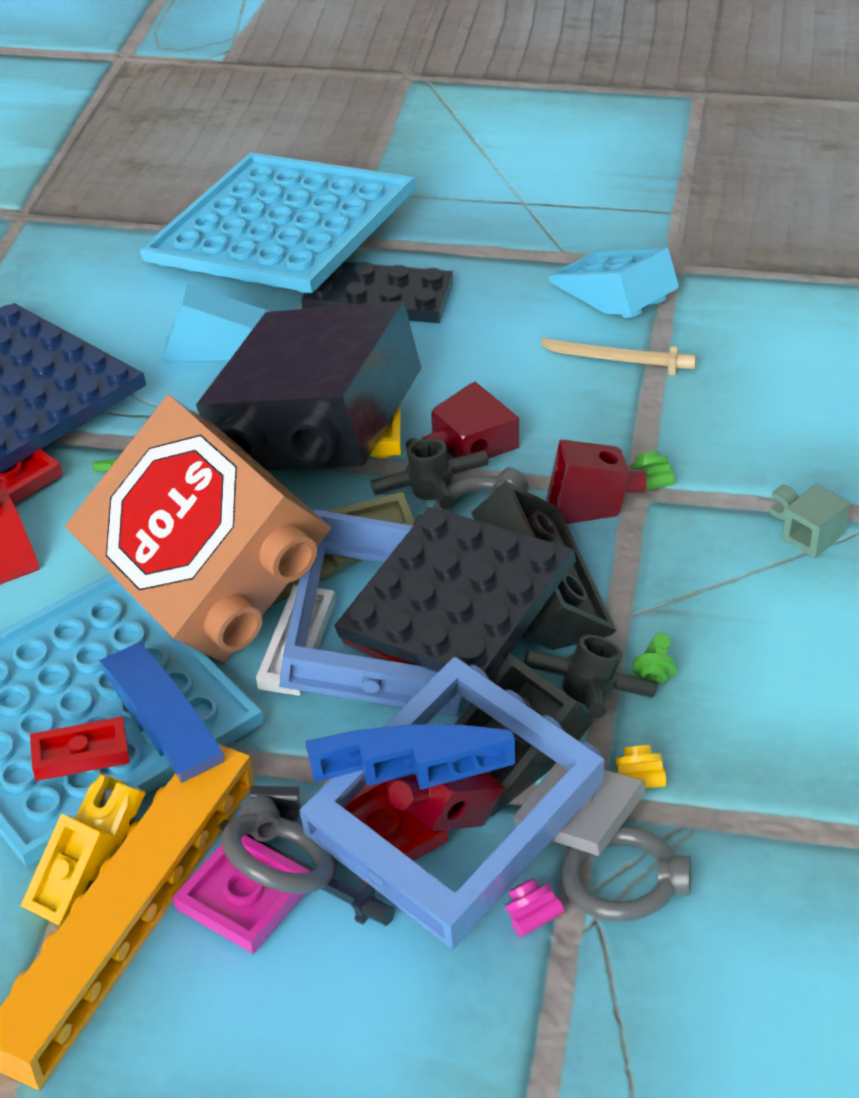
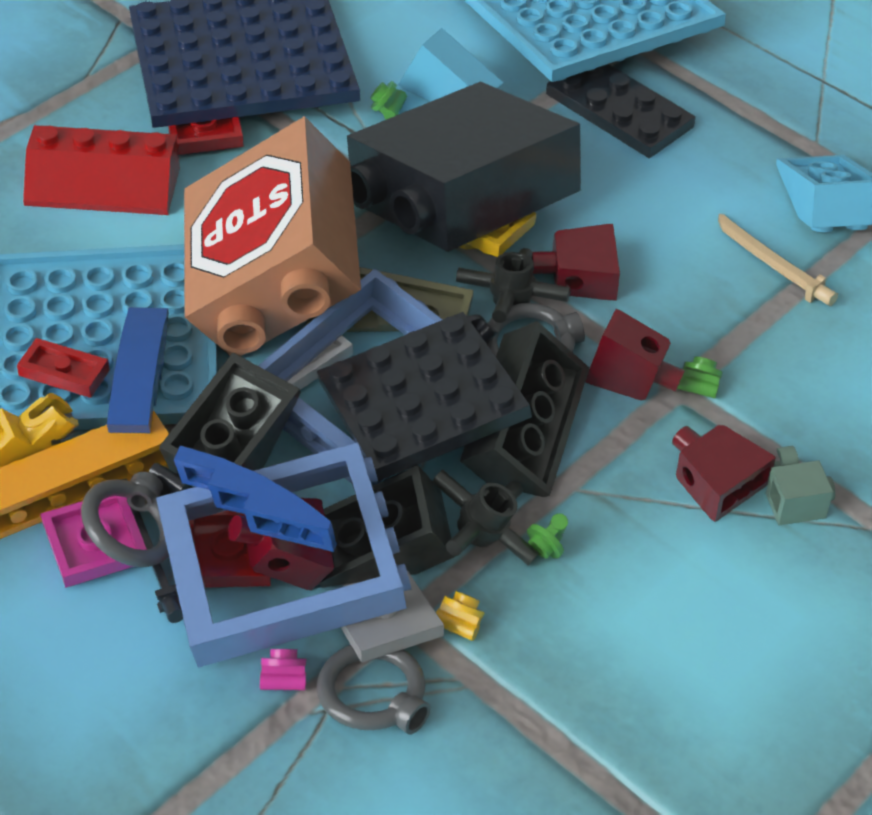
camera: 30 degrees right, 5 degrees up
(168, 373) = (388, 99): none -> bright green plate
(298, 698) = (235, 416): none -> pearl dark grey slope
(736, 533) = (721, 468): none -> dark red torso

